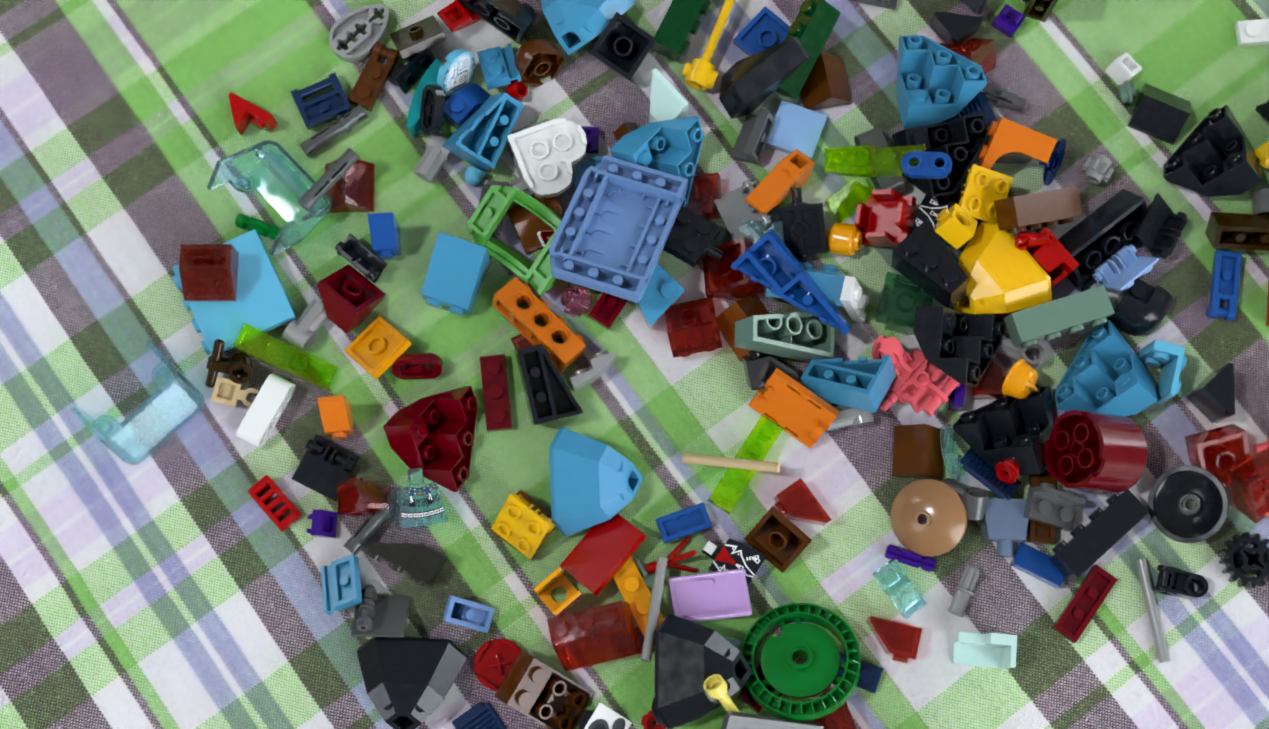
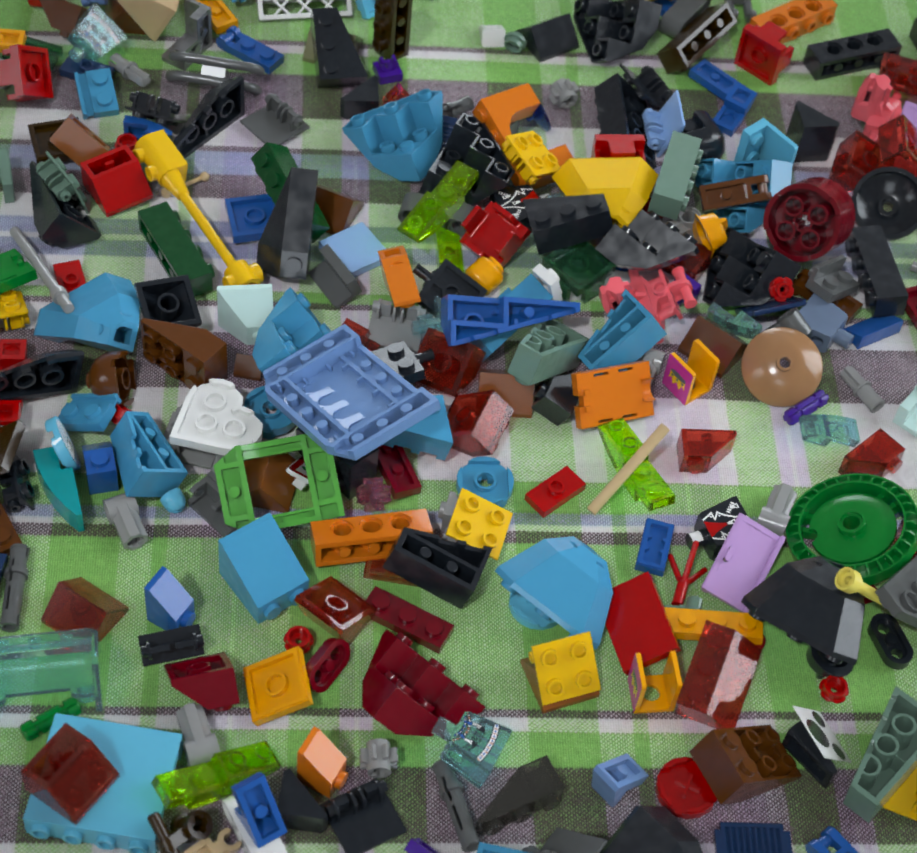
camera: 60 degrees left, 25 degrees down
(267, 402) = (258, 810): none -> blue slope
(302, 420) = (299, 807): none -> black slope
(328, 179) = (70, 596): dark grey pin -> none
(359, 498) = (426, 796): clear red slope -> none
(370, 448) = (378, 758): none -> light grey gear
(421, 330) = (298, 633): none -> red plate
(432, 109) = (82, 479): black plate -> none
(460, 342) = (335, 609): none -> clear red slope
(593, 93) = (184, 351): none -> reddish brown slope
(602, 389) = (479, 522): none -> yellow hinge
(649, 354) = (490, 469): none -> dark azure plate
(654, 608) = (728, 610): light grey bar -> none
(681, 422) = (555, 491): none -> red plate
(778, 539) = (720, 478): reddish brown slope -> none
(779, 594) = (776, 513): none -> light grey piece
(876, 450) = (698, 371): none -> light orange piece
(926, 165) = (481, 164): blue plate -> none
(955, 226) = (546, 183): yellow brick -> none
(1028, 240) = (597, 148): red arm -> none
(1038, 208) = (573, 134): reddish brown brick -> none
(1082, 374) = (734, 193): none -> reddish brown plate
(1198, 314) = (734, 109): none -> blue slope

